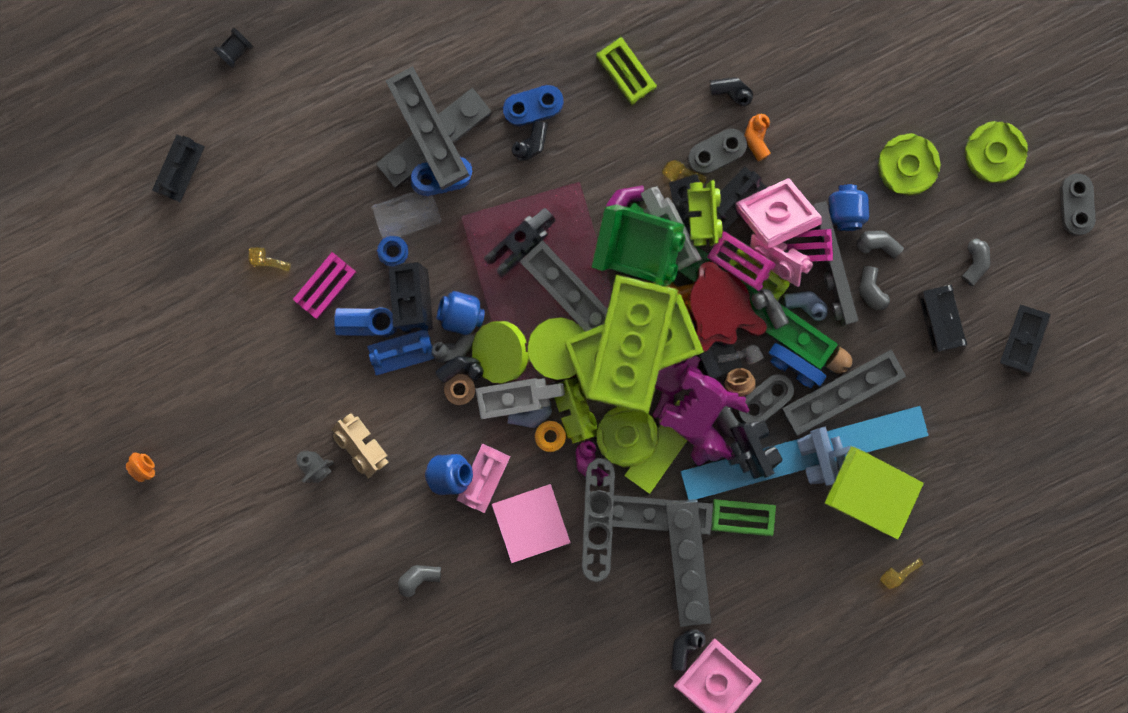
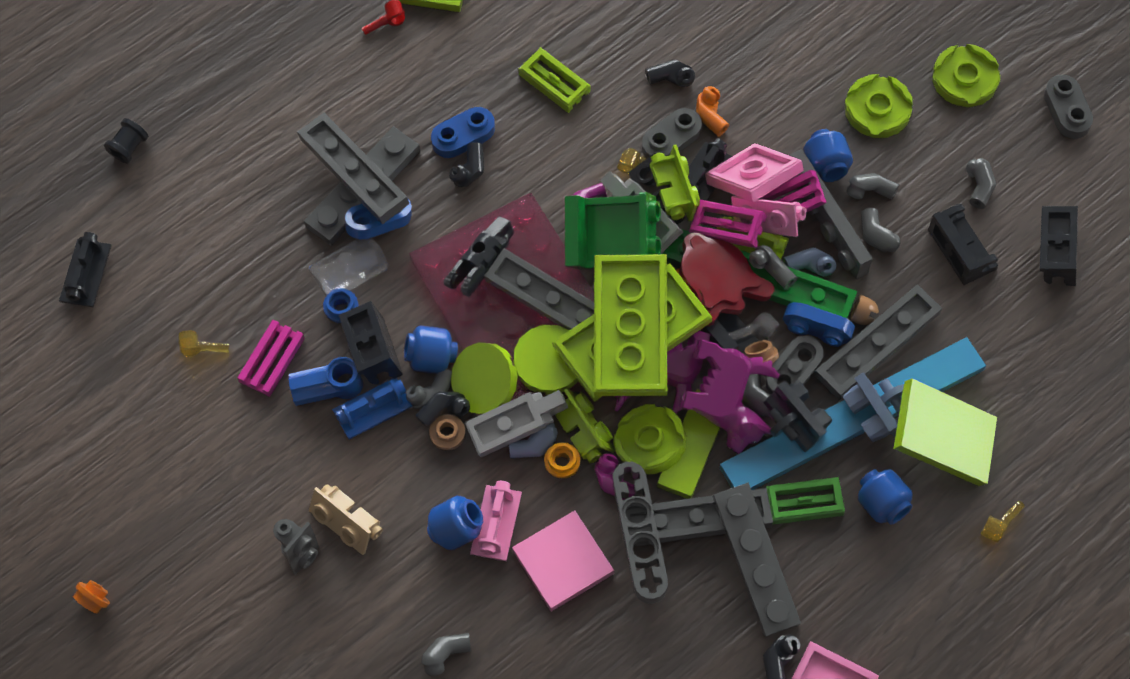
camera: 10 degrees left, 20 degrees down
(809, 533) = (885, 496): none -> blue head

